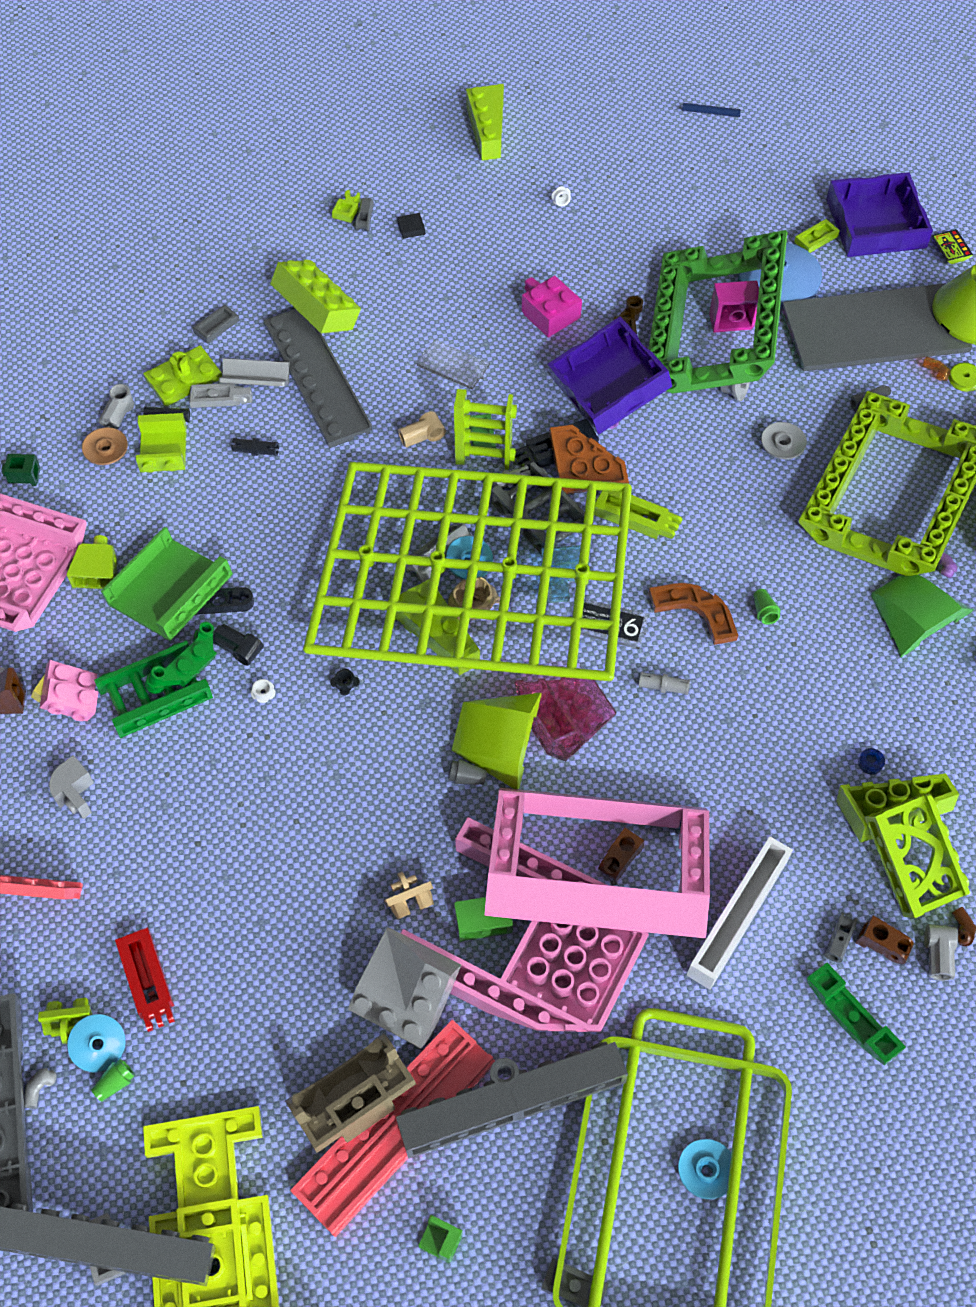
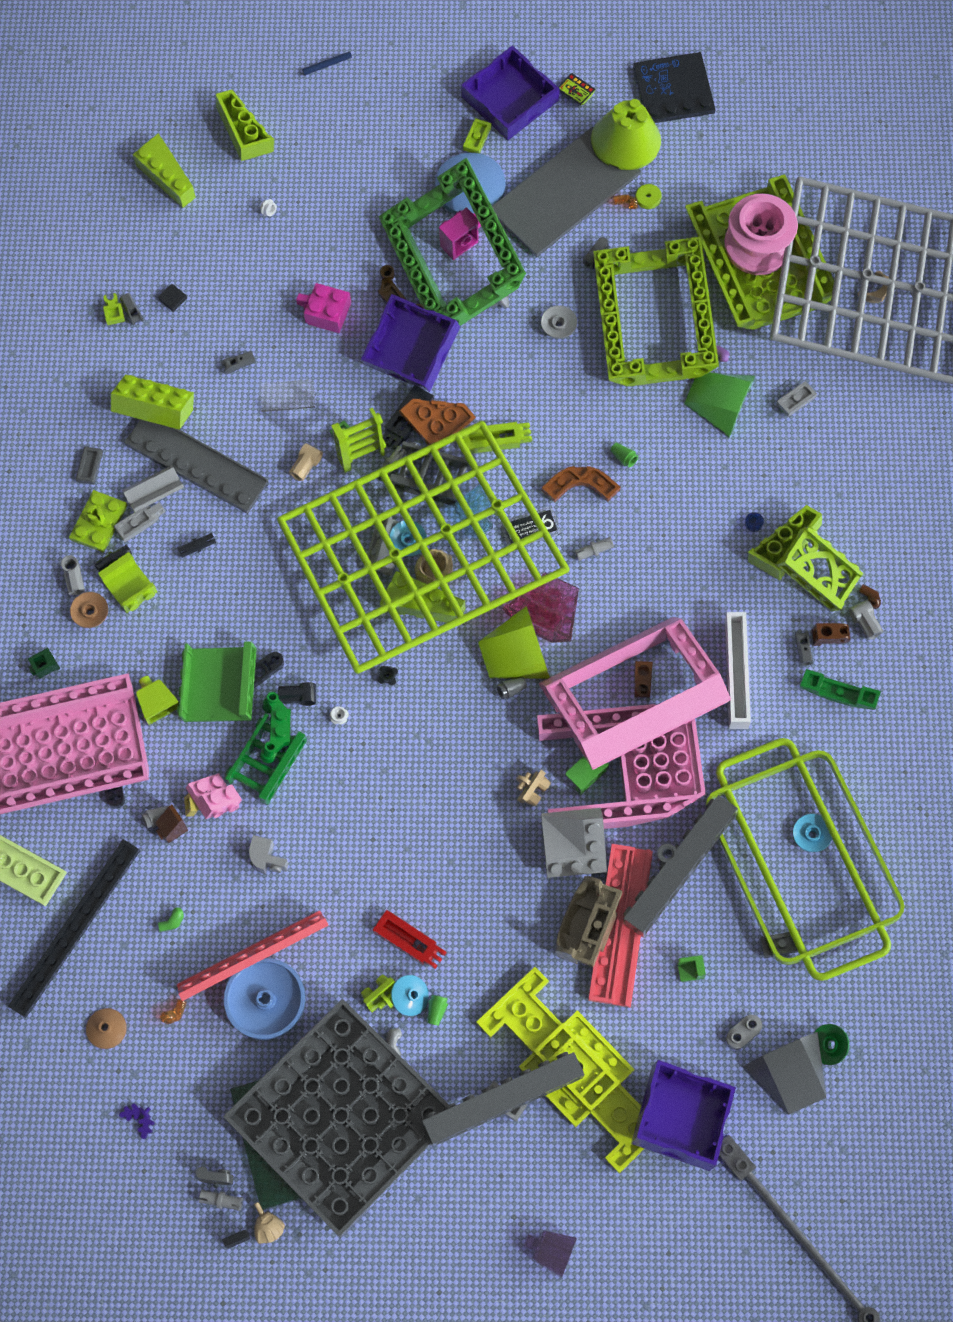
camera: 30 degrees left, 10 degrees up
(428, 309) = (241, 361): none -> dark grey bar
(588, 123) = (244, 130): none -> lime wedge

